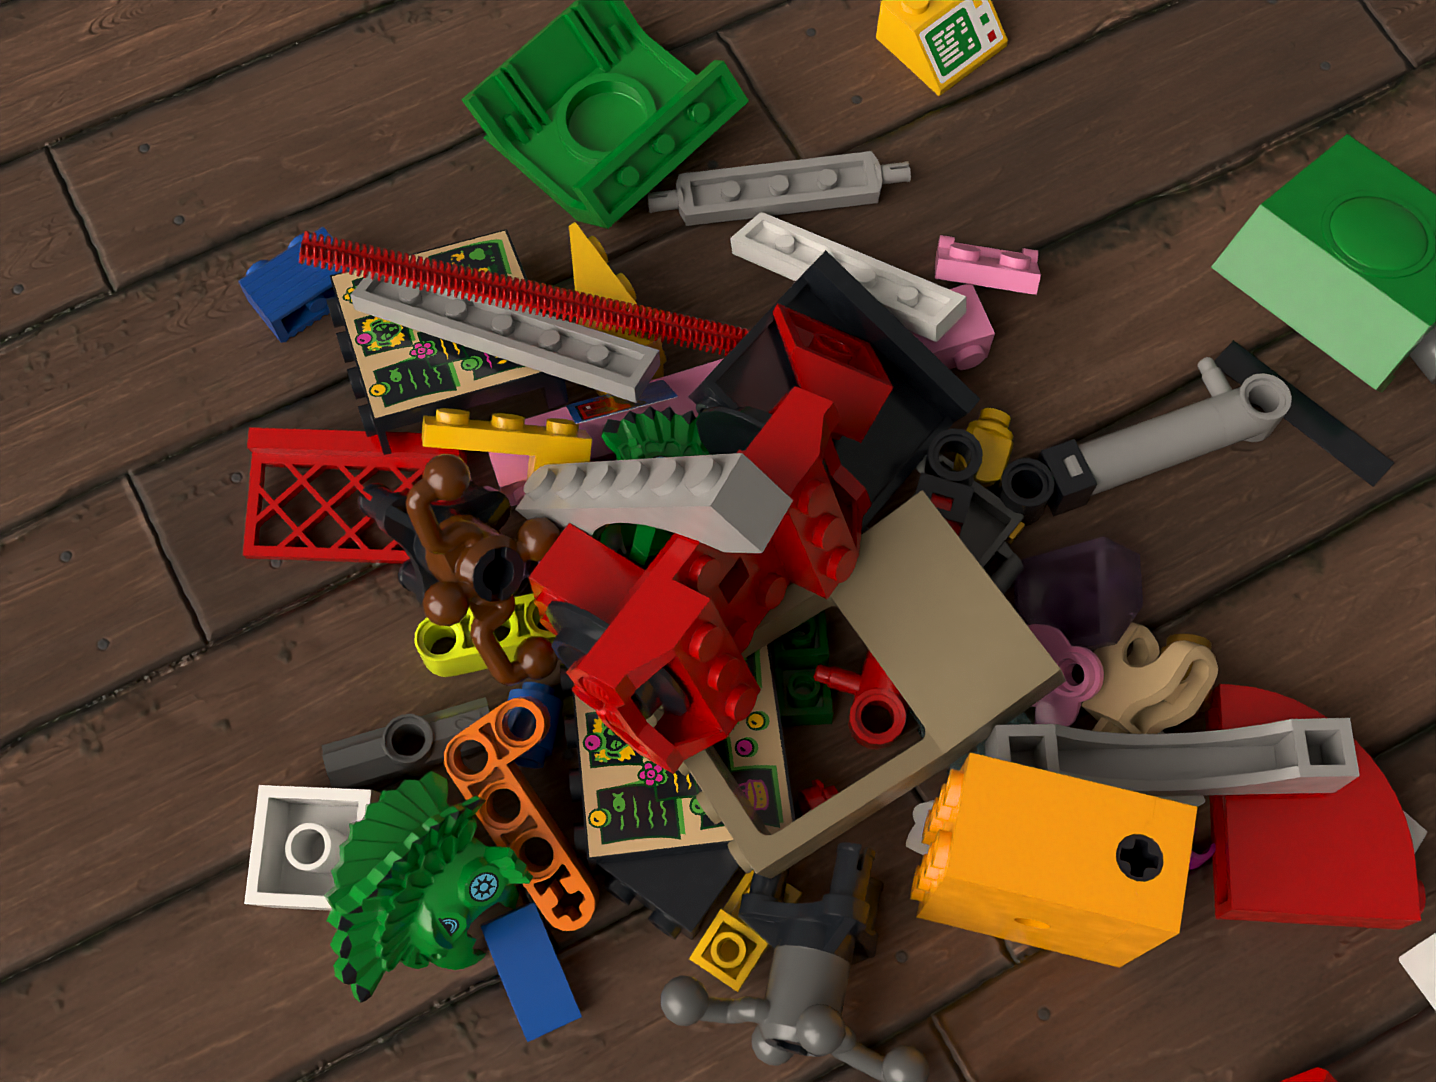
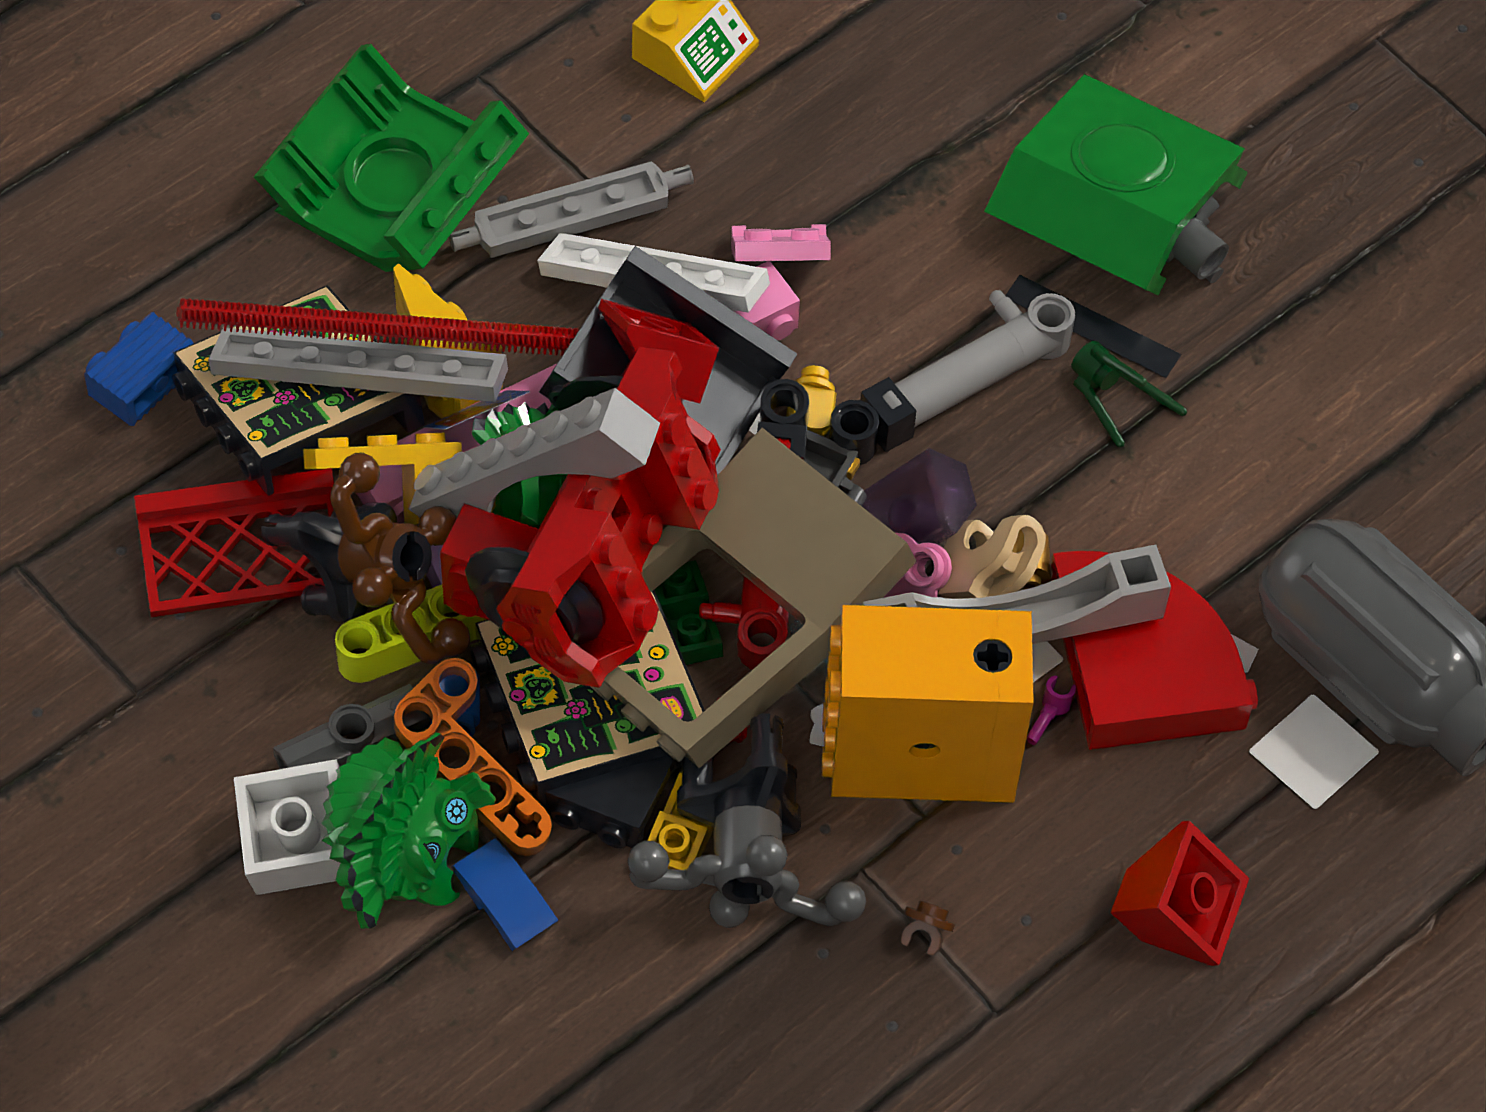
camera: 15 degrees left, 10 degrees down
(1305, 465) = (1102, 370): none -> dark green plant

